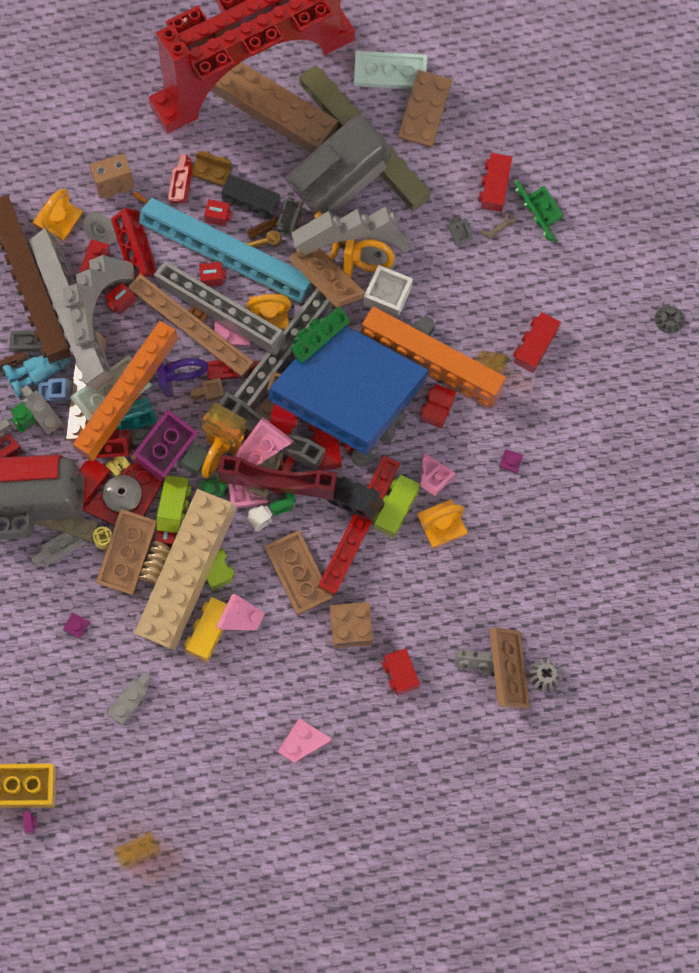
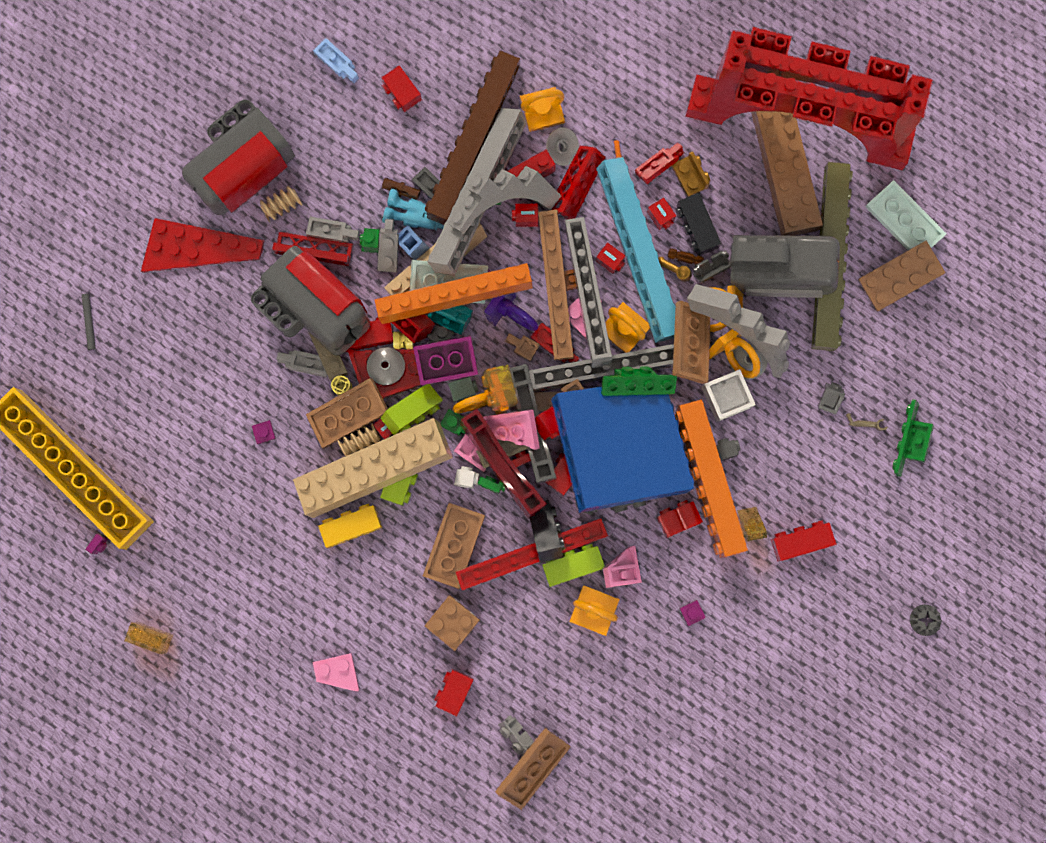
camera: 50 degrees right, 10 degrees up
(111, 176) = (609, 113): medium nougat piece -> none
(129, 699) = (248, 522): light grey hinge -> none
(240, 615) = (379, 538): bright pink wing -> none
(495, 182) = (898, 385): red brick -> none
(545, 667) = (551, 803): light grey gear -> none

